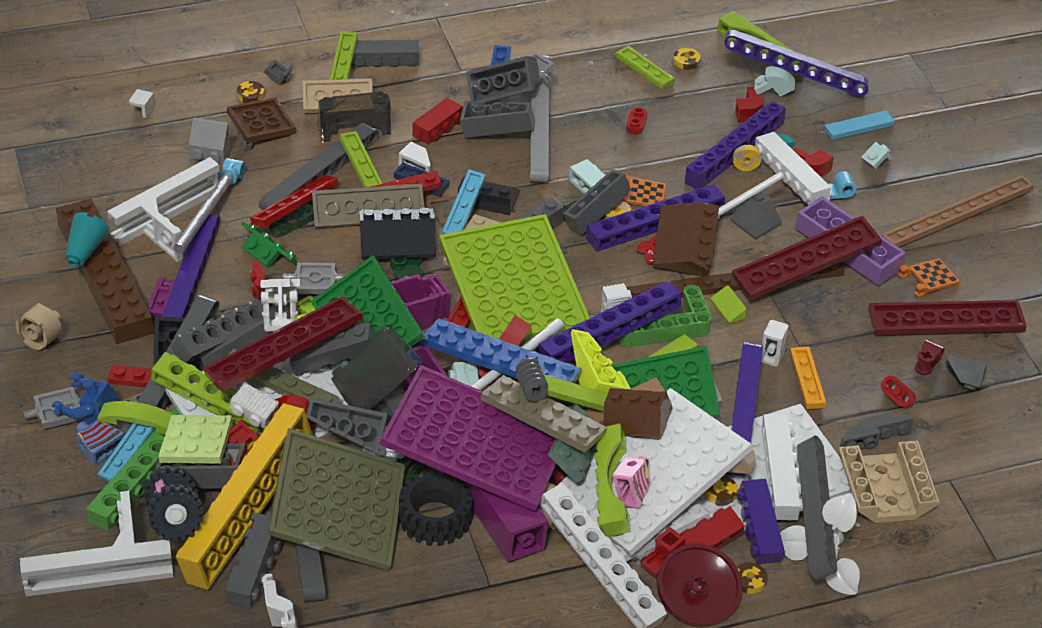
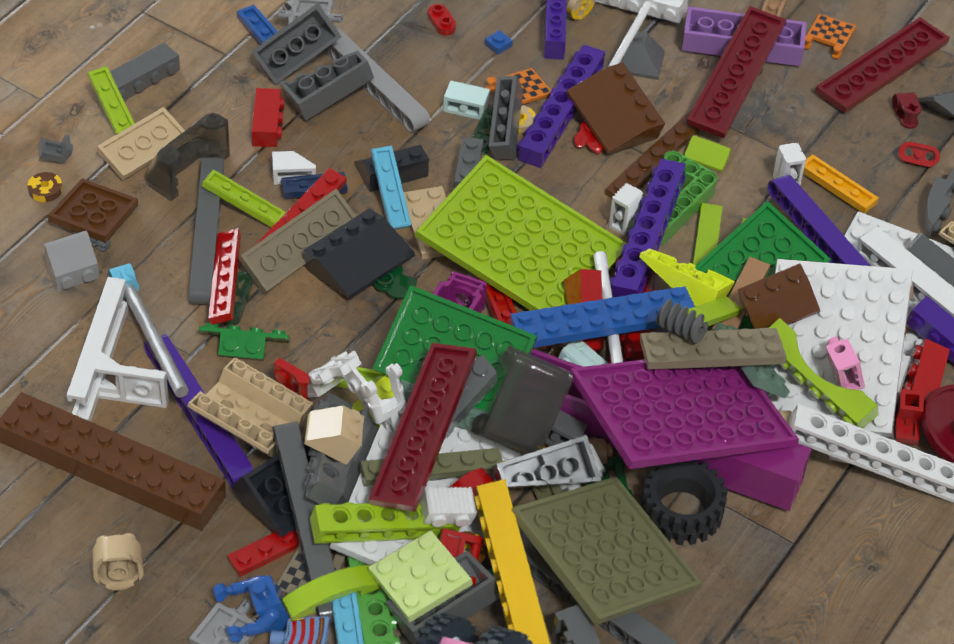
camera: 40 degrees left, 5 degrees up
(84, 238) = (79, 438): teal cone -> none
(160, 297) = (198, 451): magenta plate -> none
(225, 281) = (250, 405): none -> tan slope
(227, 318) = (335, 432): none -> tan slope
(314, 277) = (324, 342): light grey plate -> none
(661, 155) = (498, 42): none -> blue plate

